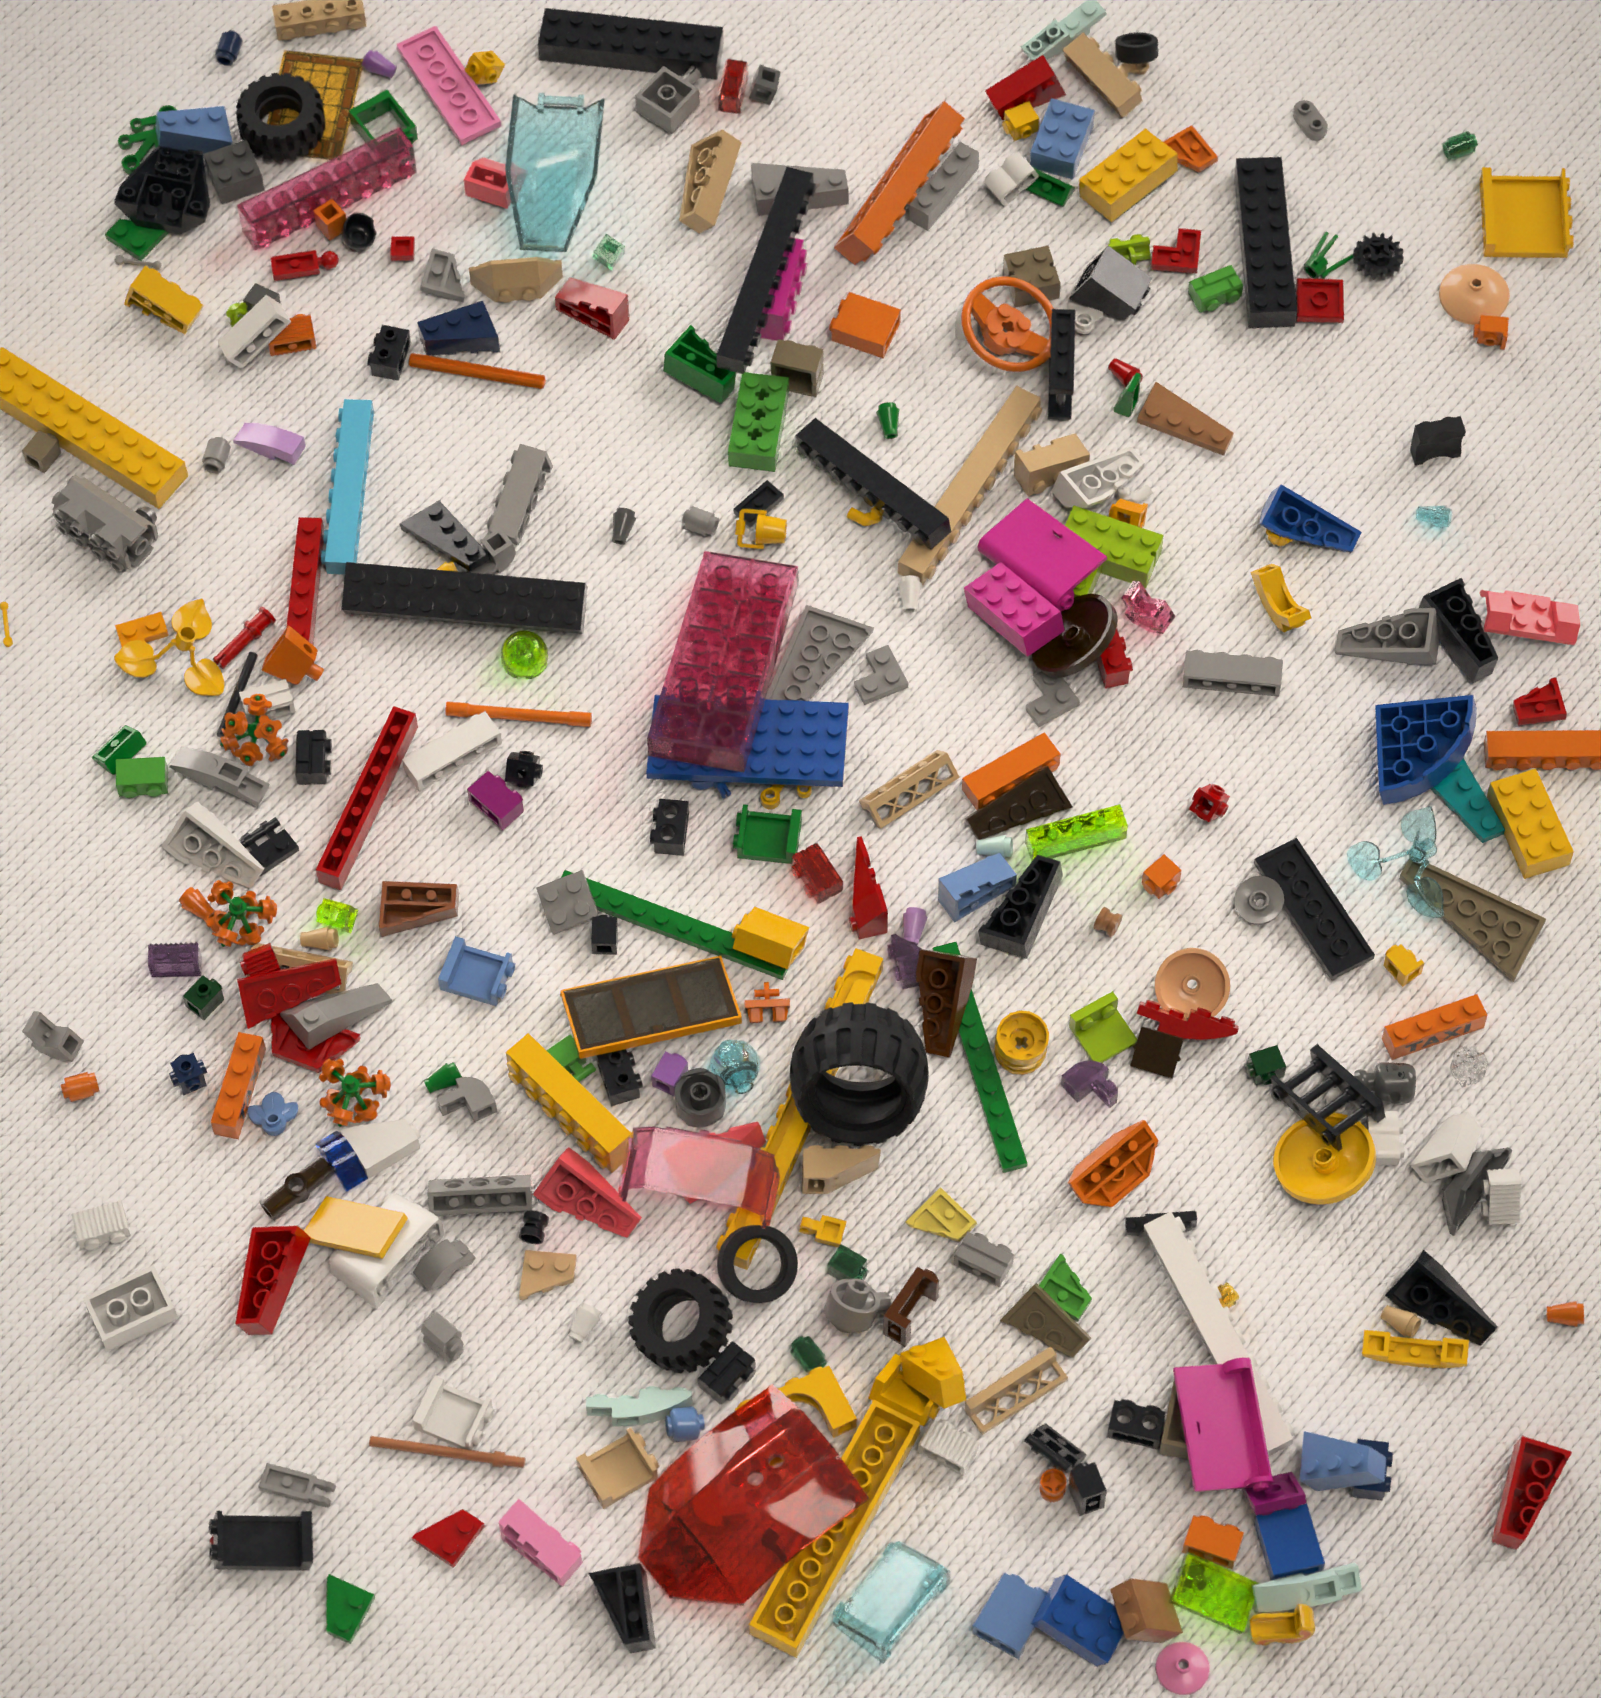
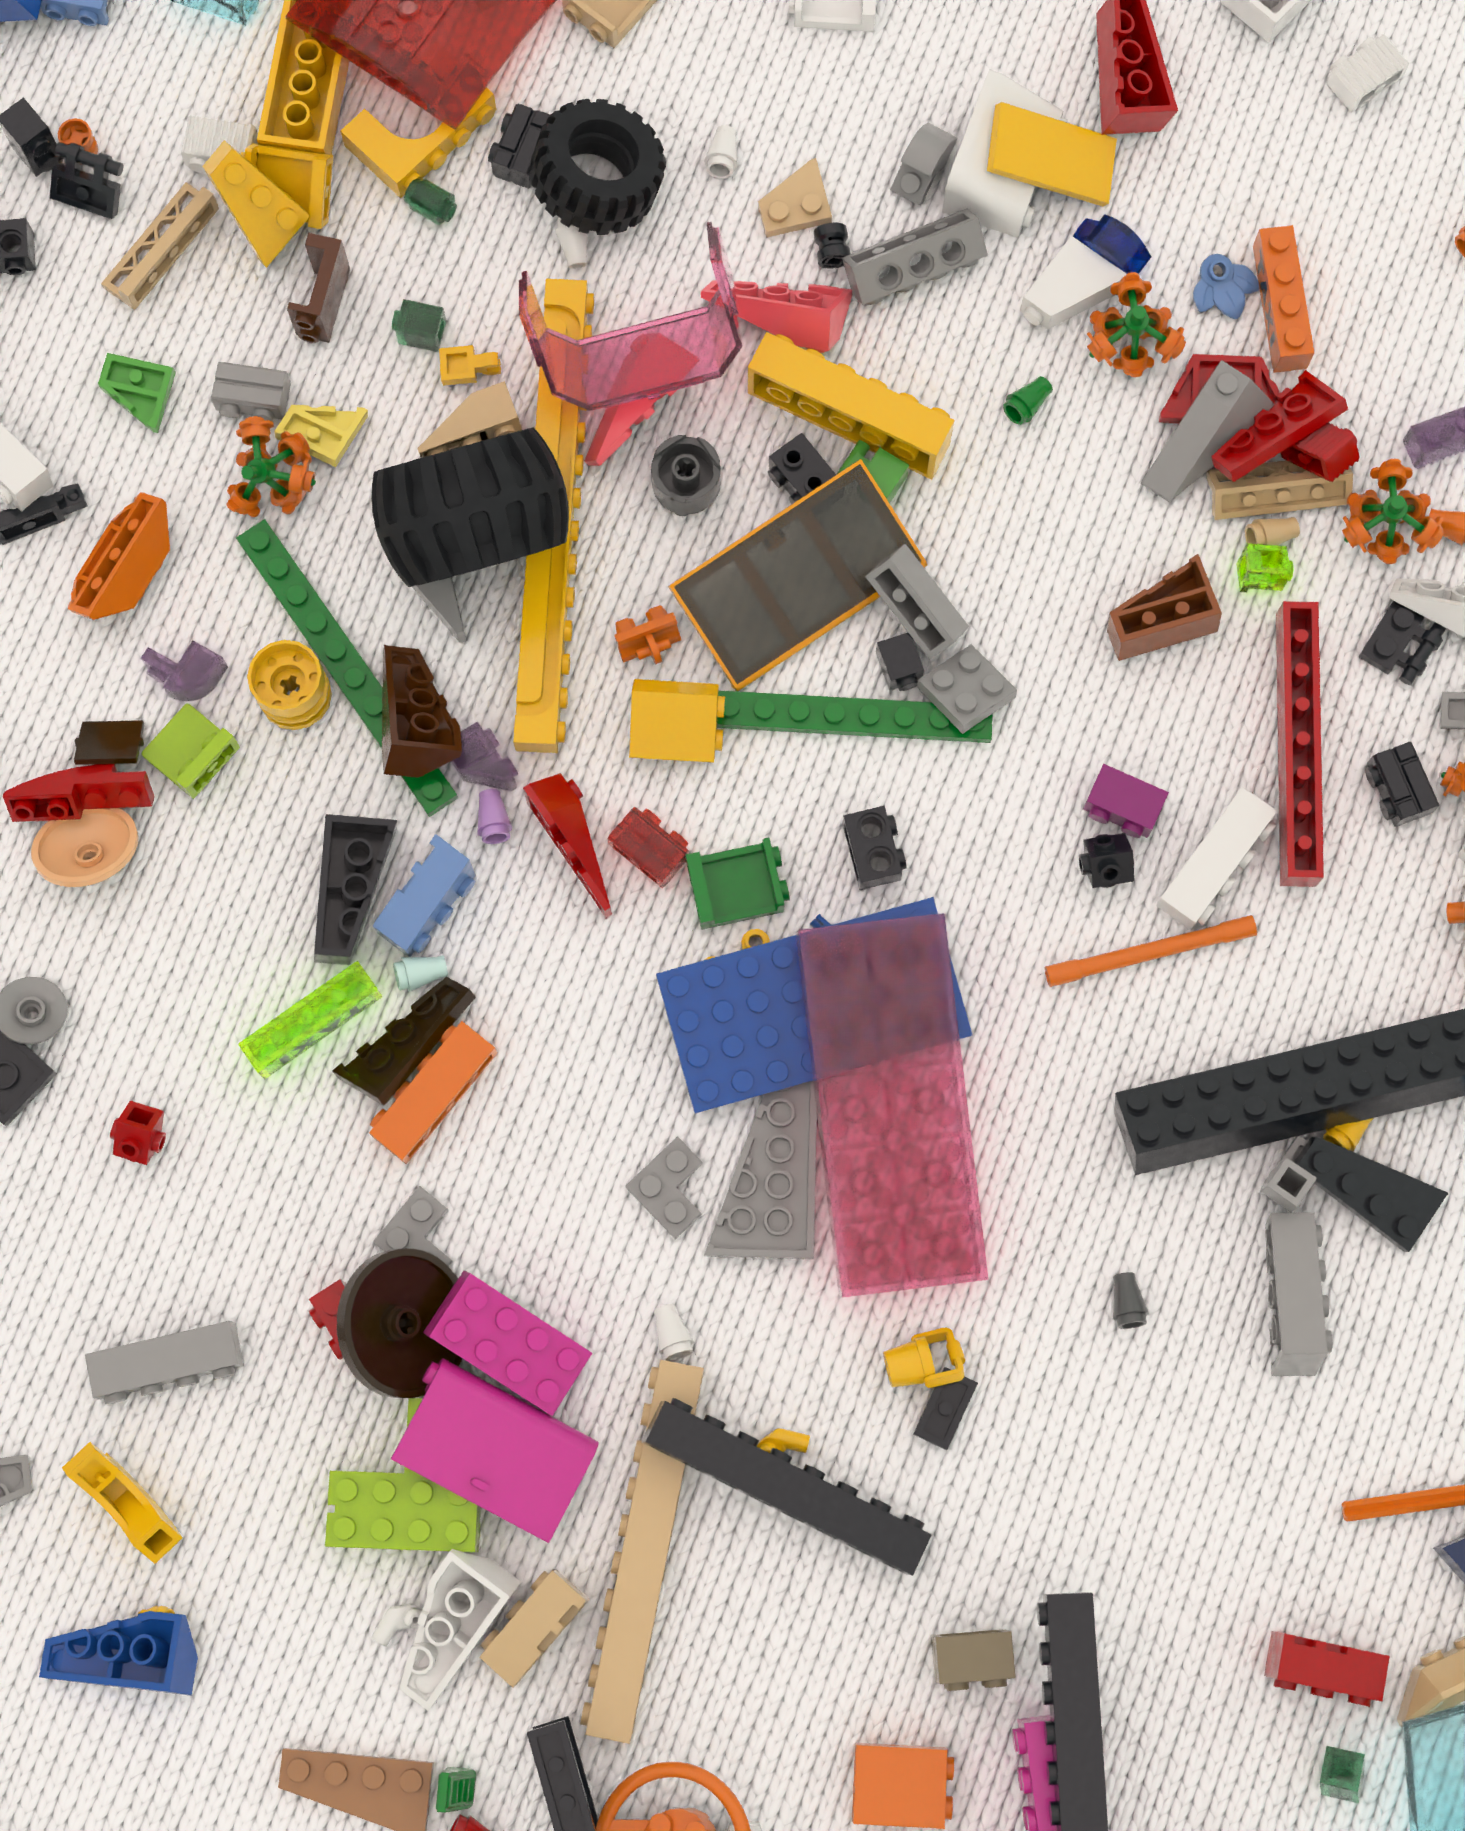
camera: 160 degrees right, 15 degrees up
(188, 1073) = (1354, 292): dark blue brick -> none
(204, 997) = (1383, 401): dark green brick -> none
(284, 1198) = (1156, 182): dark brown piece -> none
(442, 1337) = (883, 61): light grey brick -> none
(469, 1093) = (978, 387): light grey brick -> none
(475, 973) = (1047, 557): medium blue panel -> none
(524, 655) = (1180, 1044): clear neon green cylinder -> none
(578, 958) = (917, 601): none -> light grey brick
(649, 1408) = (622, 62): light aqua slope -> none
(669, 1072) = (739, 501): medium lavender brick -> none
(684, 1424) = (551, 66): medium blue head -> none
(696, 365) = (1129, 1614): green wedge -> none
(700, 521) = (1018, 1346): light grey brick -> none
(736, 1065) = (657, 534): clear light blue brick -> none
(758, 422) = (976, 1533): bright green brick -> none
(787, 1272) = (517, 250): black tyre -> none
(854, 1305) = (386, 280): light grey piece -> none
(888, 417) = (806, 1626): green cone -> none
(905, 780) = (573, 1025): tan fence -> none
(981, 1180) = (261, 468): none -> orange plant
(1045, 1320) = (156, 342): dark tan wing -> none
(1108, 921) = (230, 909): medium nougat wheel -> none
(1129, 512) = (392, 1573): light orange brick -> none
(1146, 612) = (315, 1419): clear pink brick -> none
(1161, 877) = (176, 1000): orange brick -> none

